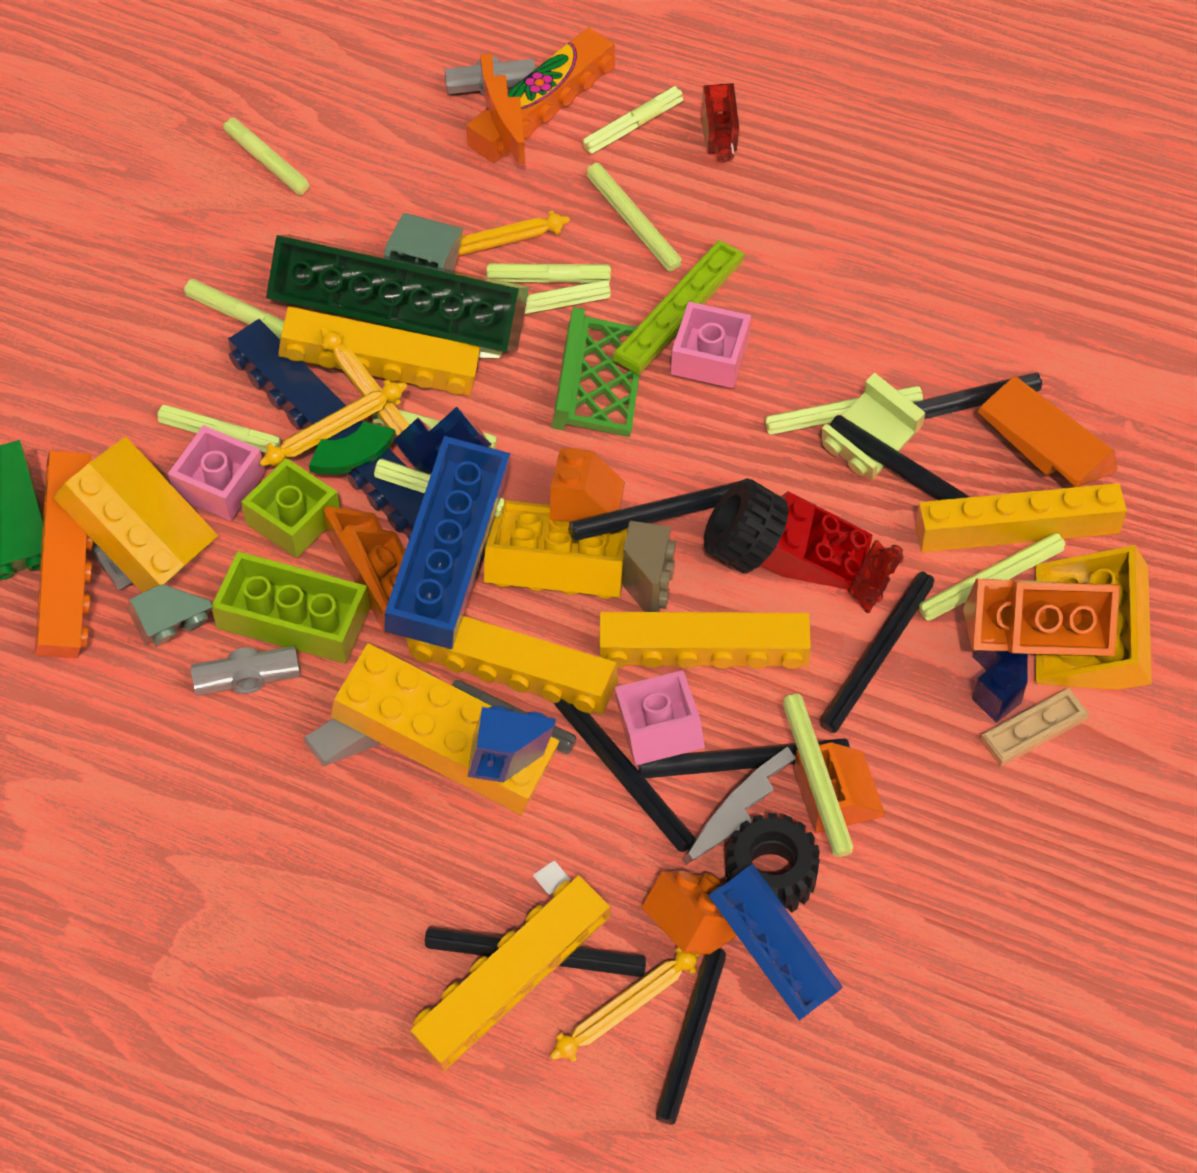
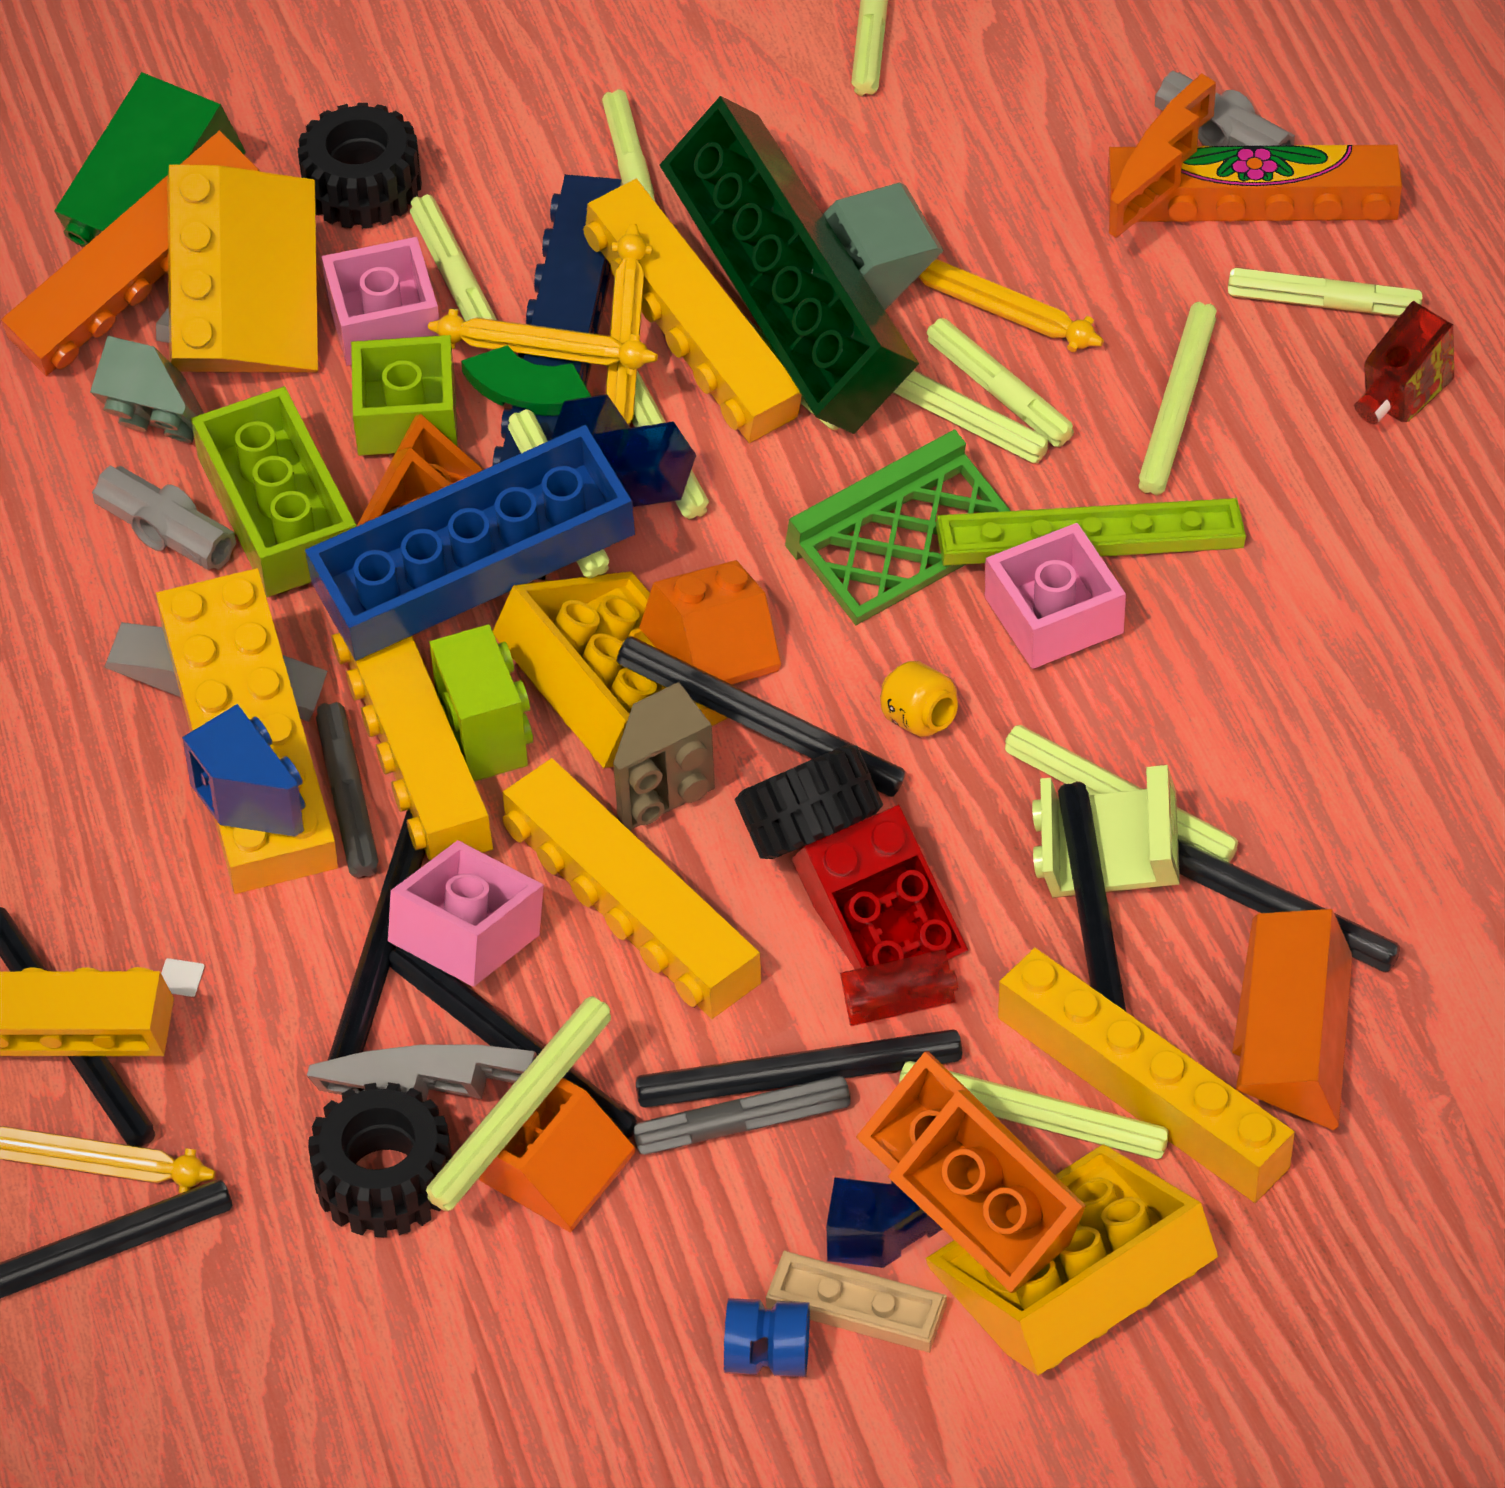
camera: 50 degrees right, 5 degrees down
(106, 398) = (361, 164): none -> black tyre
(534, 609) = (482, 701): none -> lime brick
(686, 912) = (246, 1129): orange slope -> none
(711, 442) = (919, 699): none -> yellow head
(777, 940) = (281, 1230): blue fence -> none
(884, 694) = (741, 1115): none -> dark grey axle
(1033, 775) = (766, 1337): none -> blue wheel

